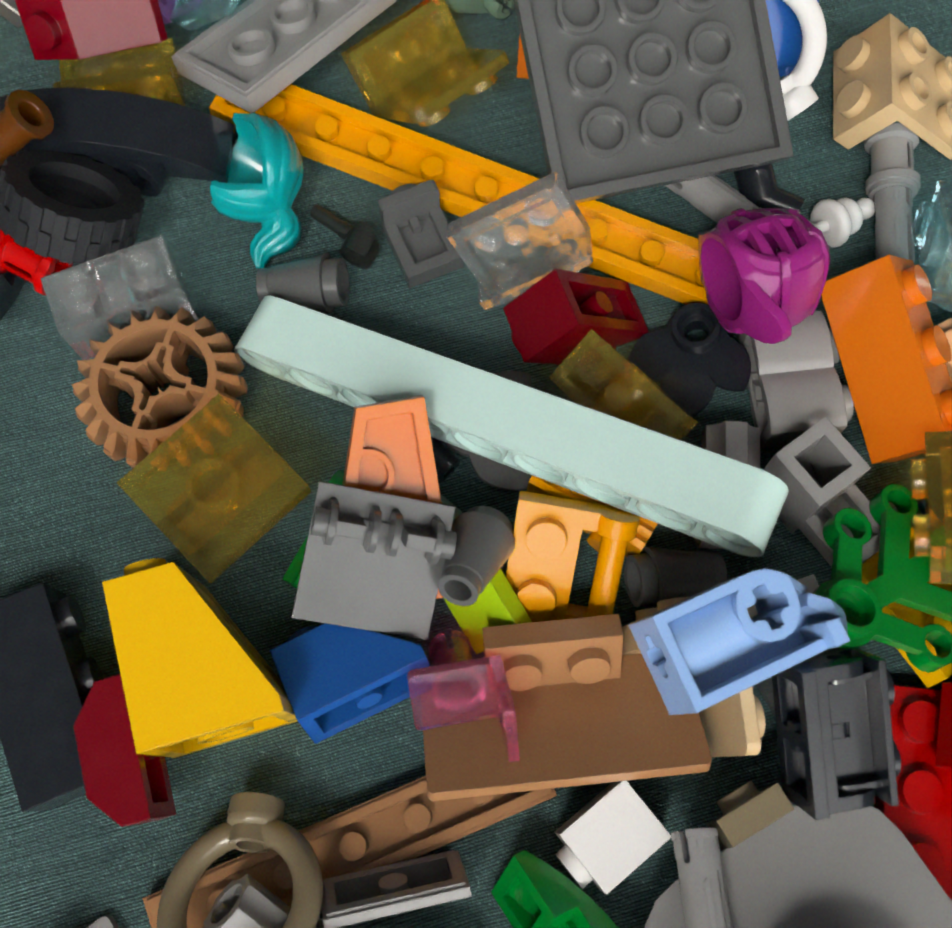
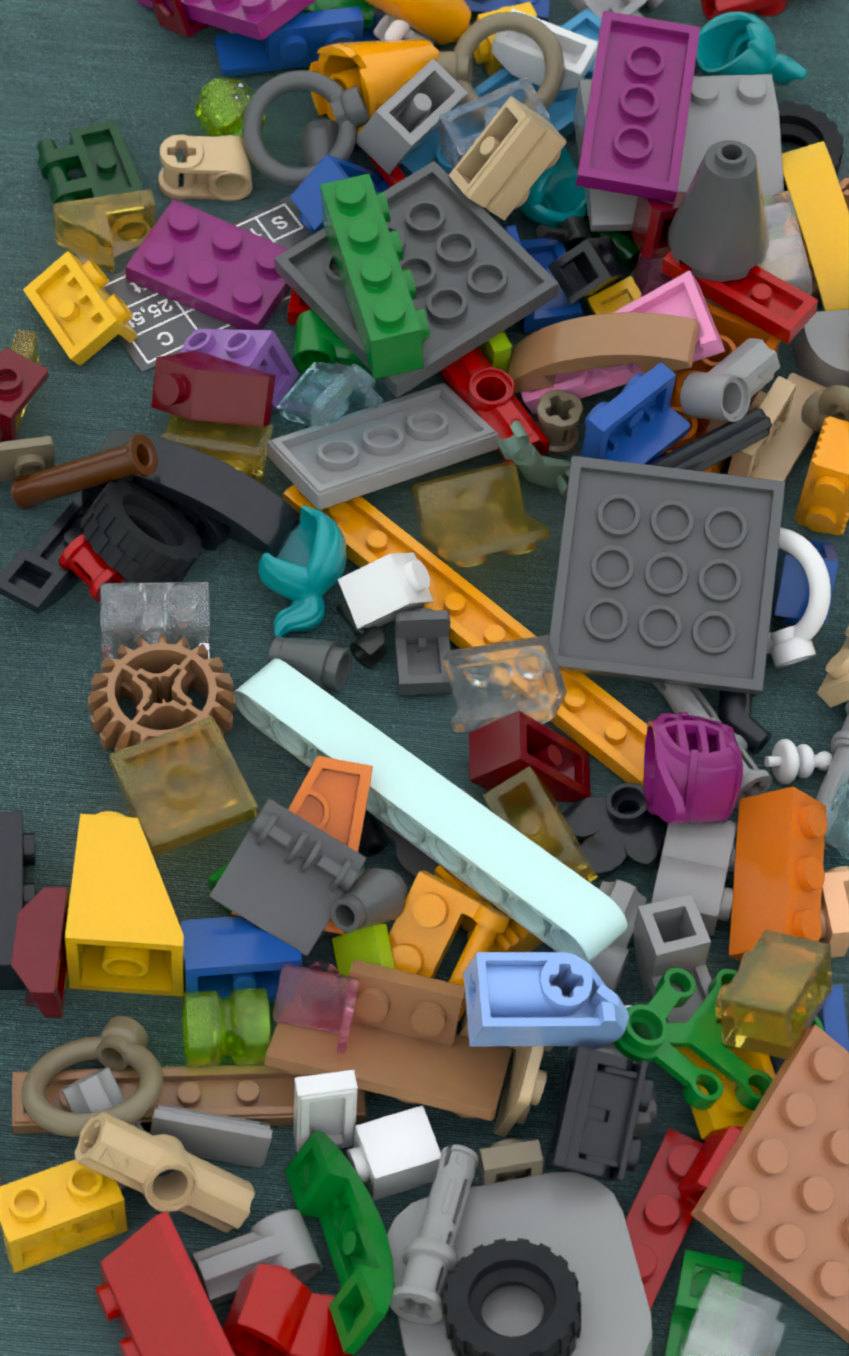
camera: 15 degrees right, 15 degrees down
(356, 177) = (385, 588): none -> white brick
(365, 760) = (225, 1027): none -> clear neon green wheel
(520, 831) = (325, 1105): none -> white tile

